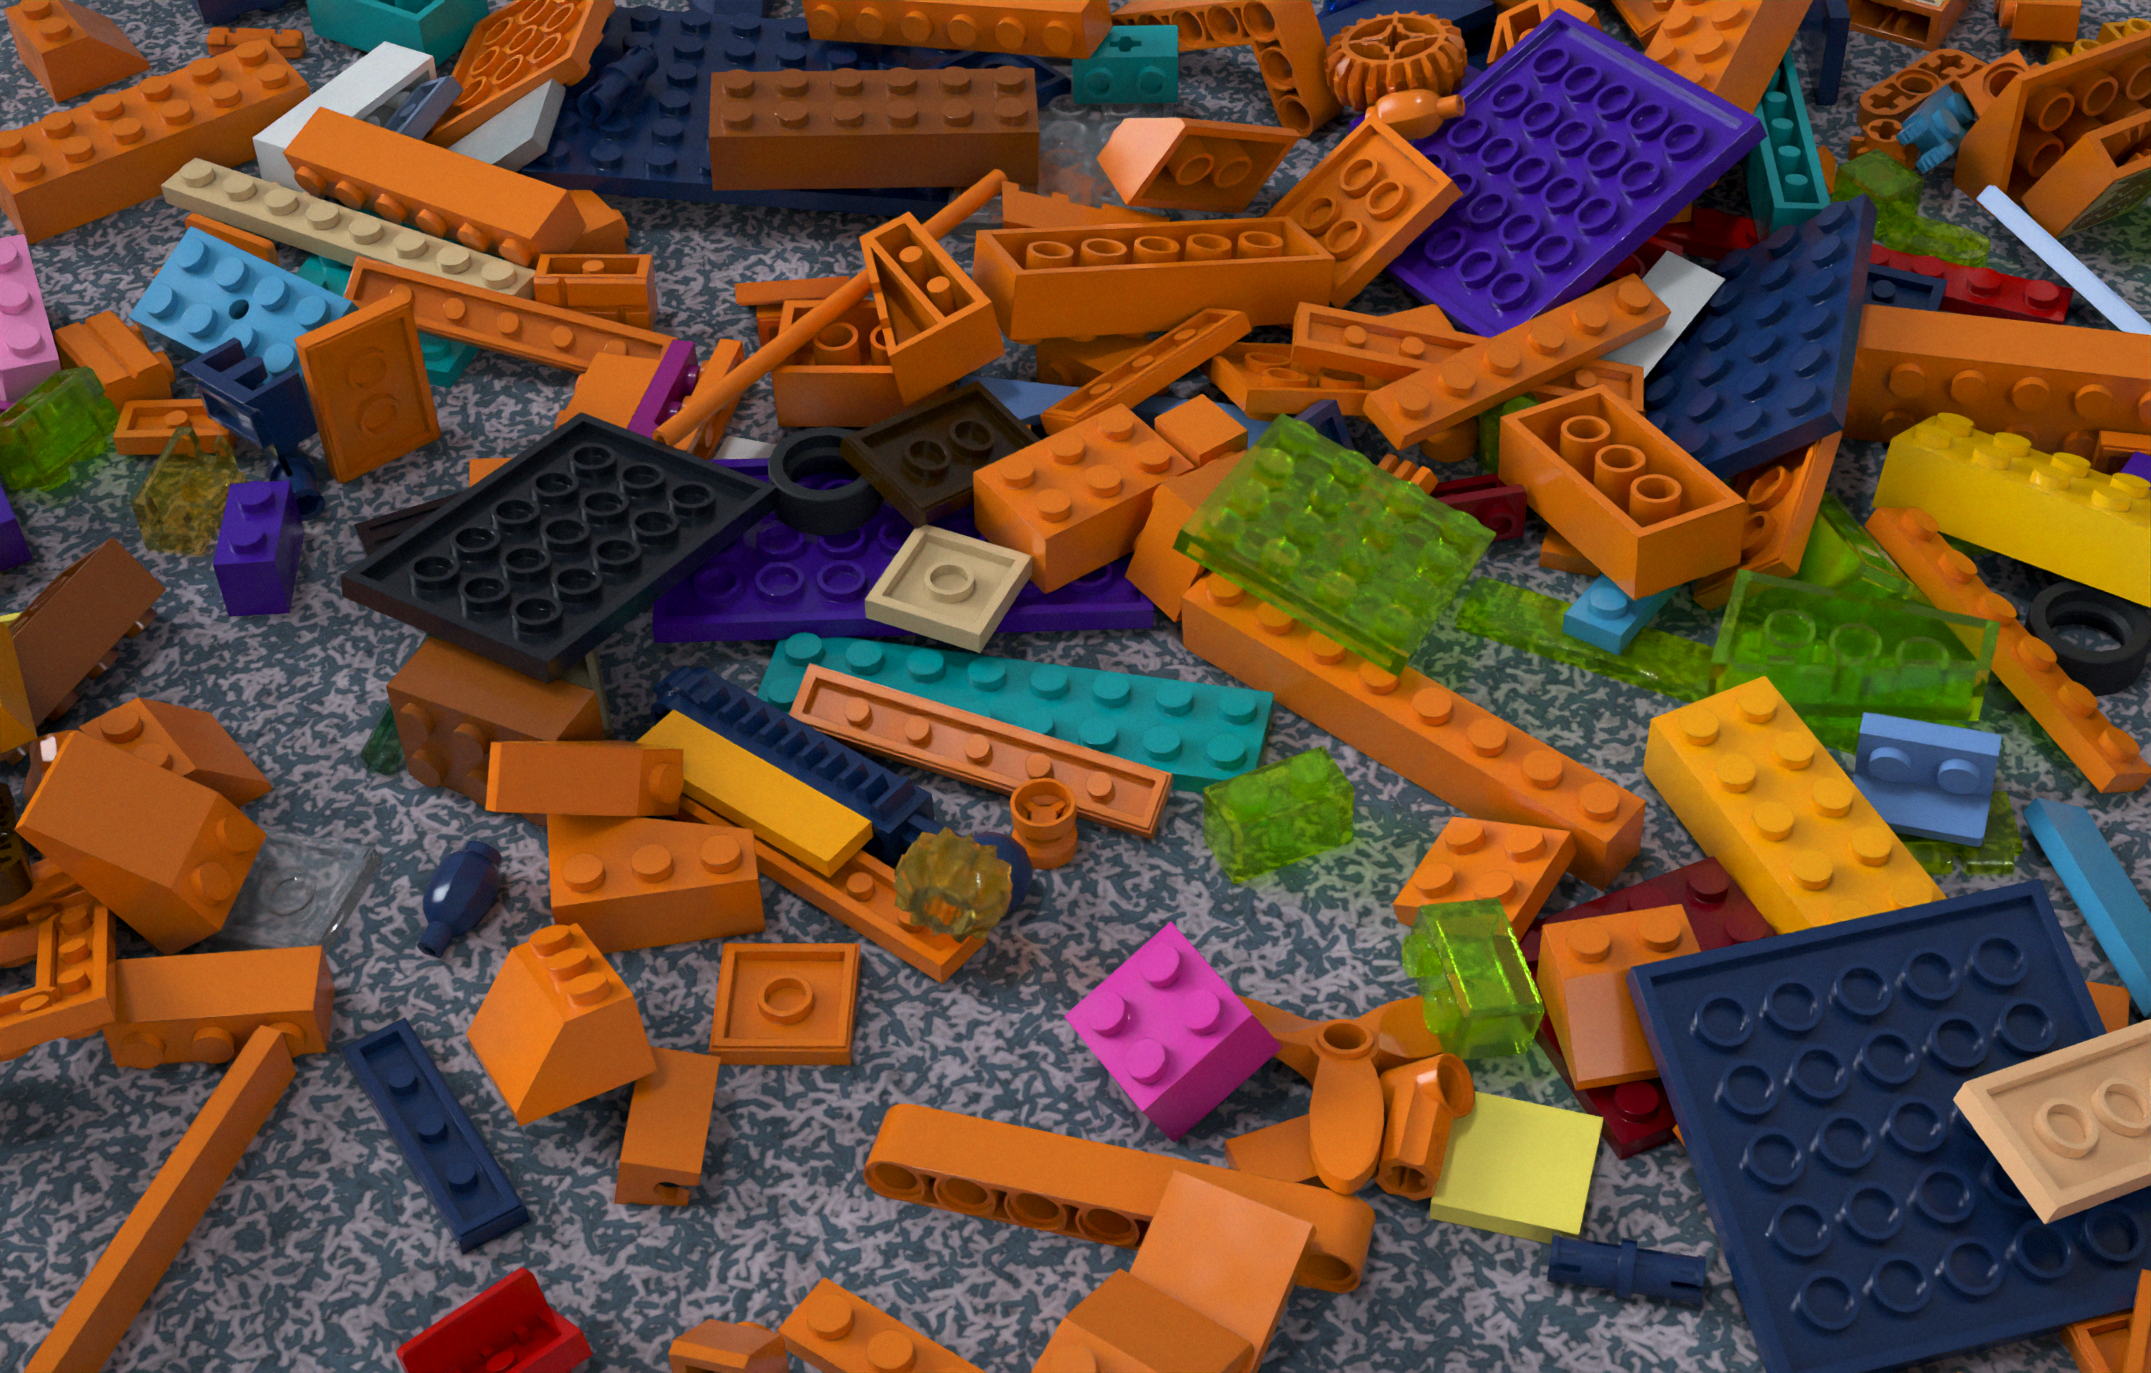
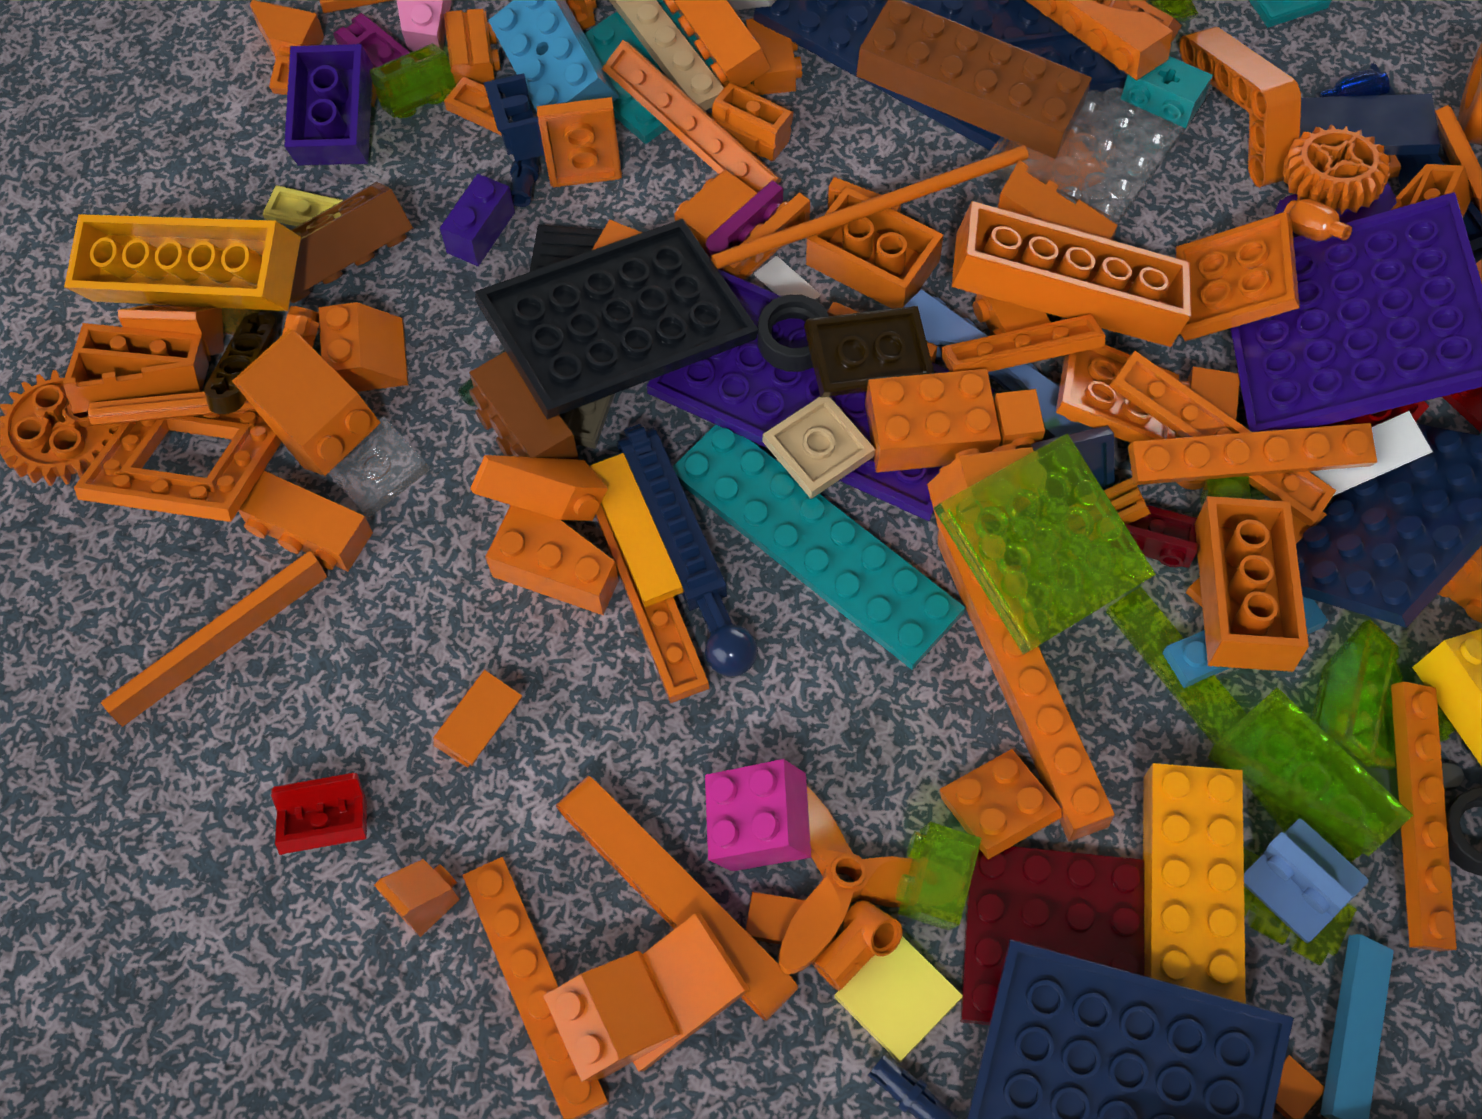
camera: 30 degrees right, 20 degrees up
(185, 494) = (461, 157): clear yellow hinge -> none
(435, 1136) = (369, 655): dark blue tile -> none
(459, 895) = (456, 512): dark blue plant -> none
(558, 1026) = (450, 636): orange slope -> none
(777, 291) = (864, 172): orange tile -> none
(786, 1004) = (584, 671): orange tile -> none
(928, 309) = (908, 247): orange wedge -> none
(953, 885) = (692, 661): clear yellow gear -> none
(979, 749) = (776, 564): orange tile -> none
(1044, 821) = (781, 621): orange wheel -> none
(1193, 162) = (1154, 191): orange slope -> none
(1278, 814) = (911, 697): clear neon green brick -> none
(1587, 992) = (1014, 914): orange slope -> none
(1778, 518) = (1337, 648): orange tile -> none

